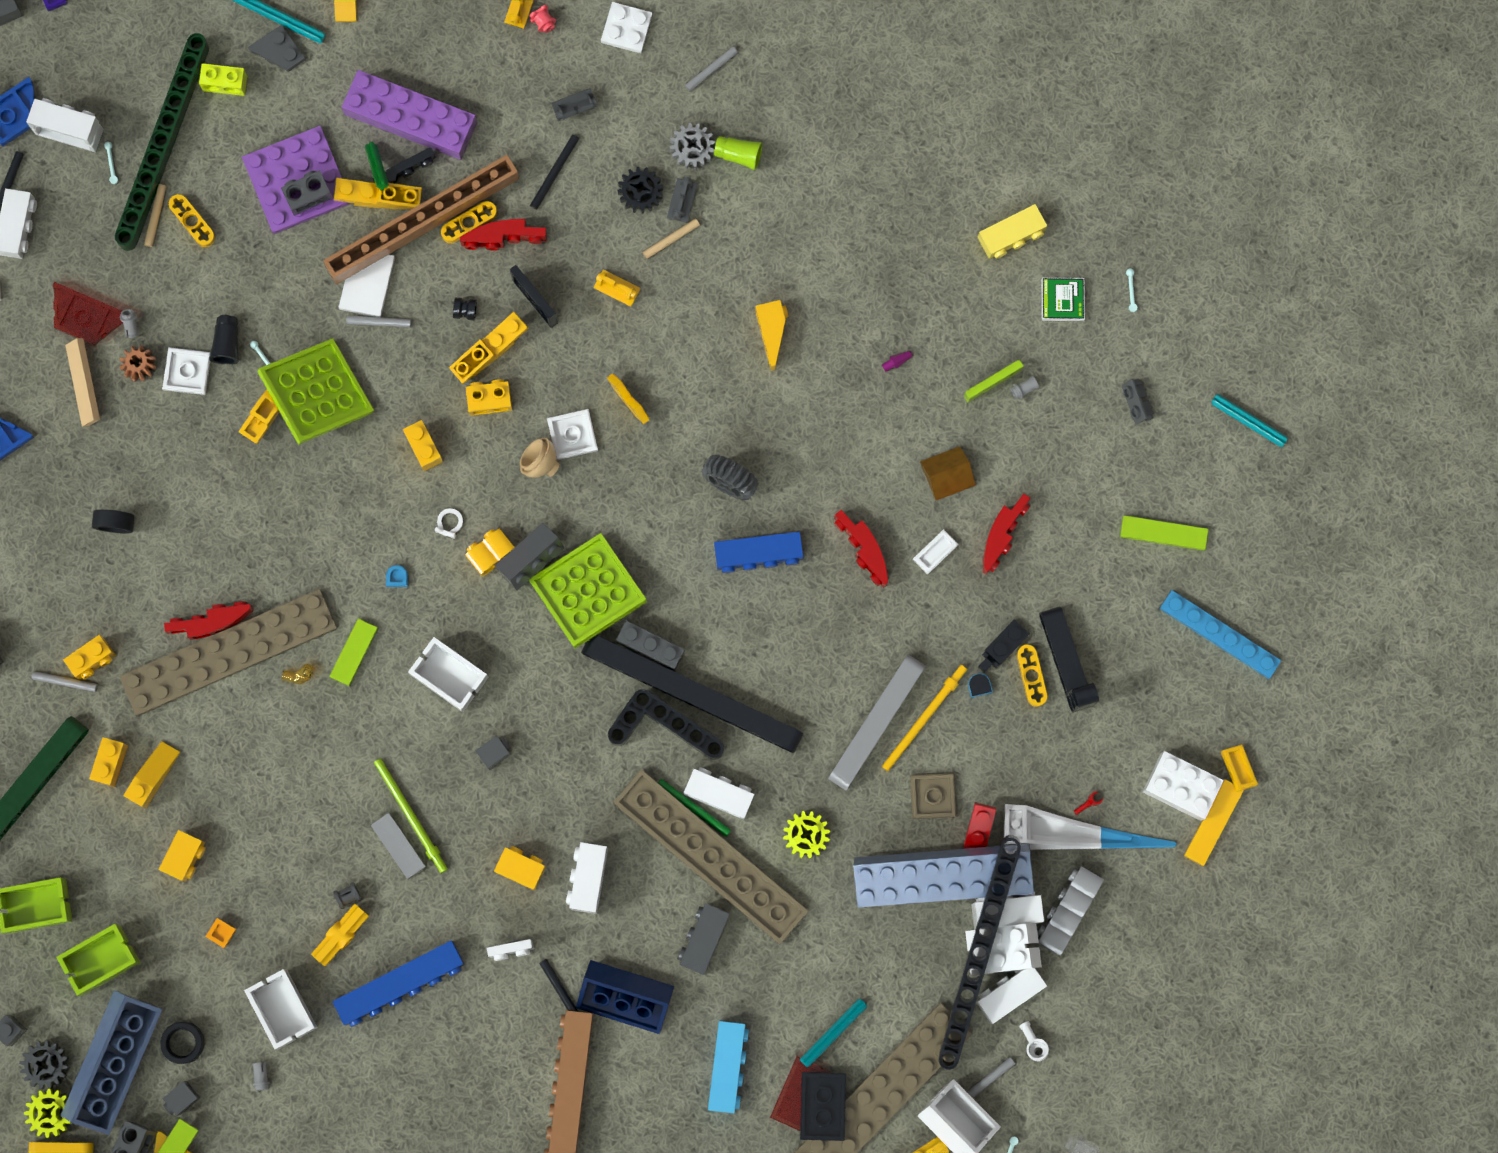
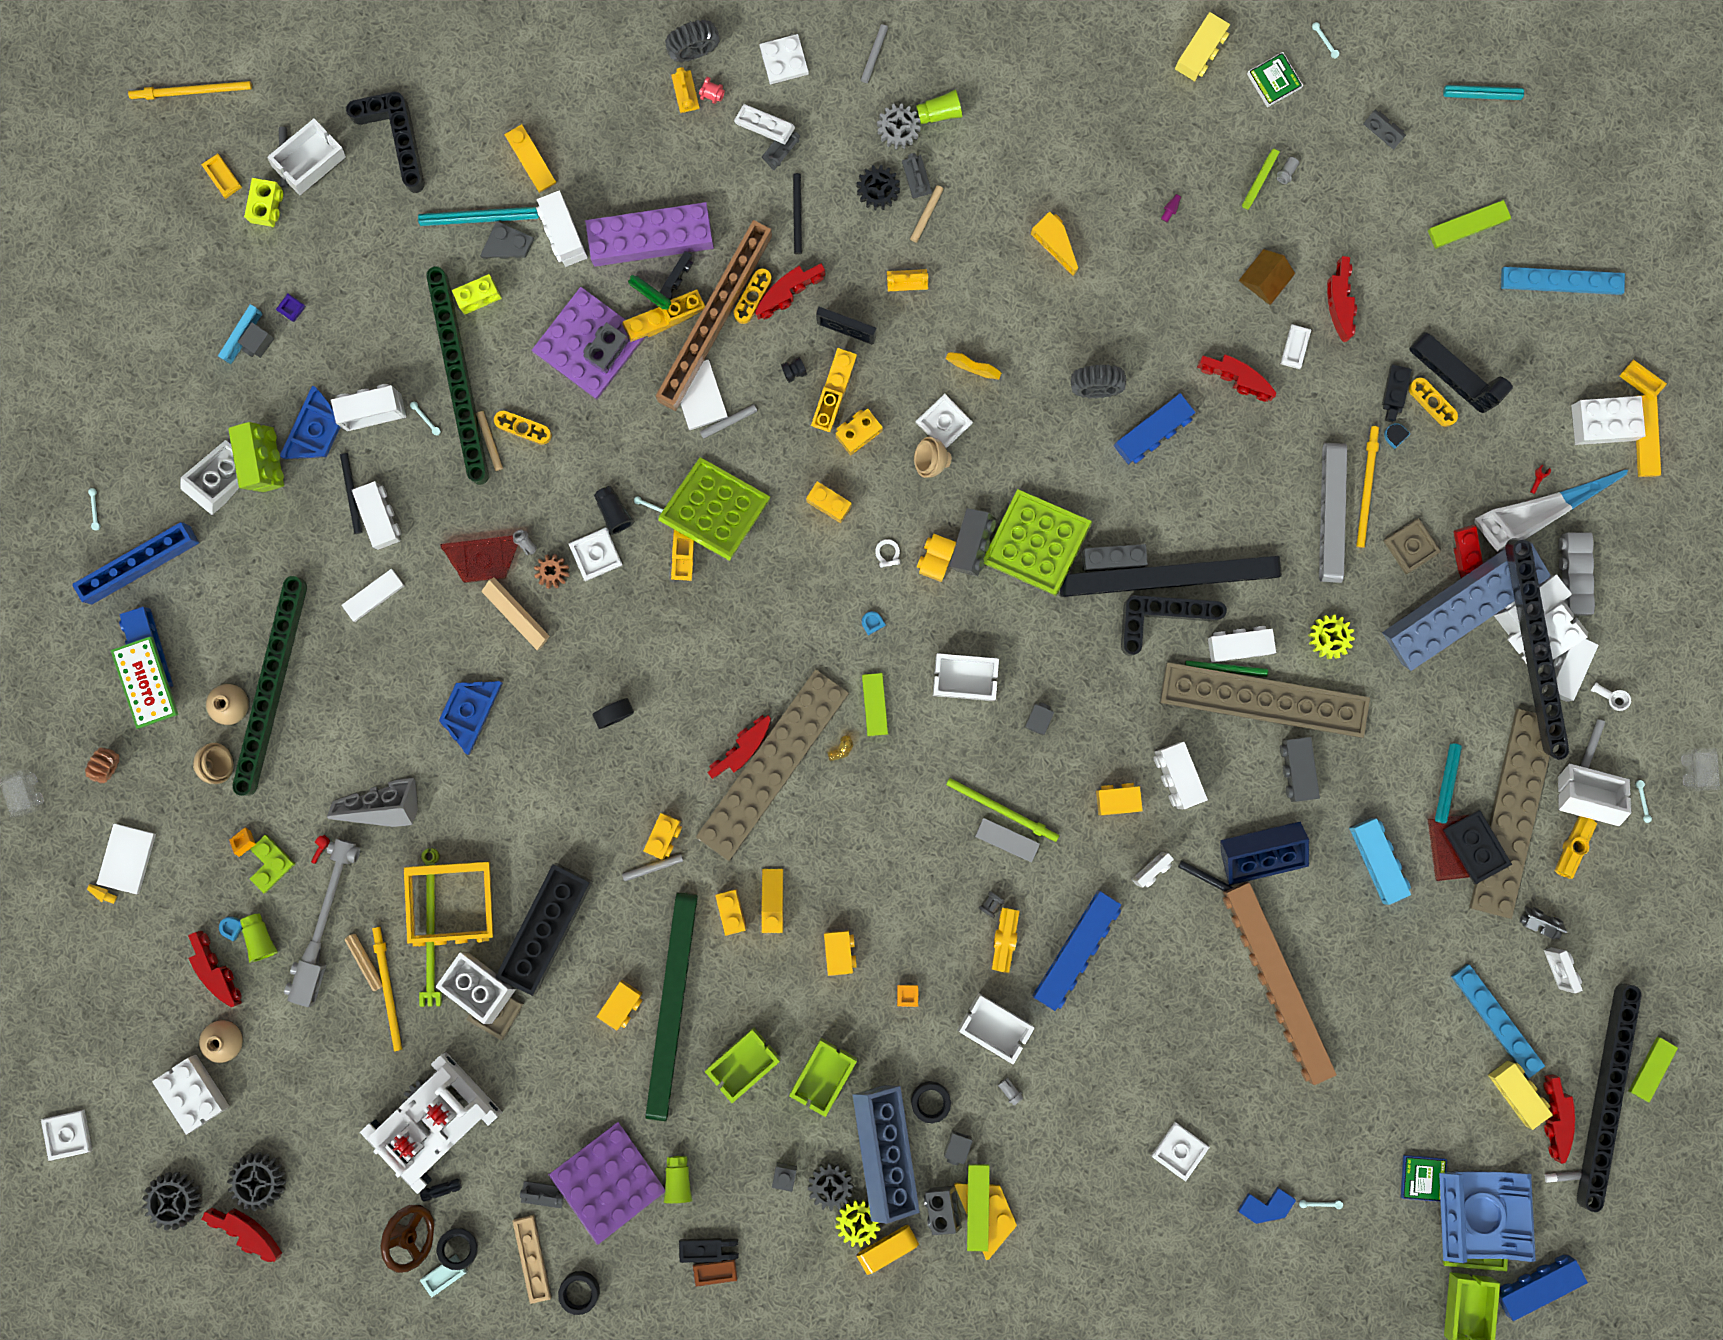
camera: 30 degrees left, 5 degrees up
(332, 65) = (560, 229): none -> white piece
(572, 75) = (764, 124): none -> white tile

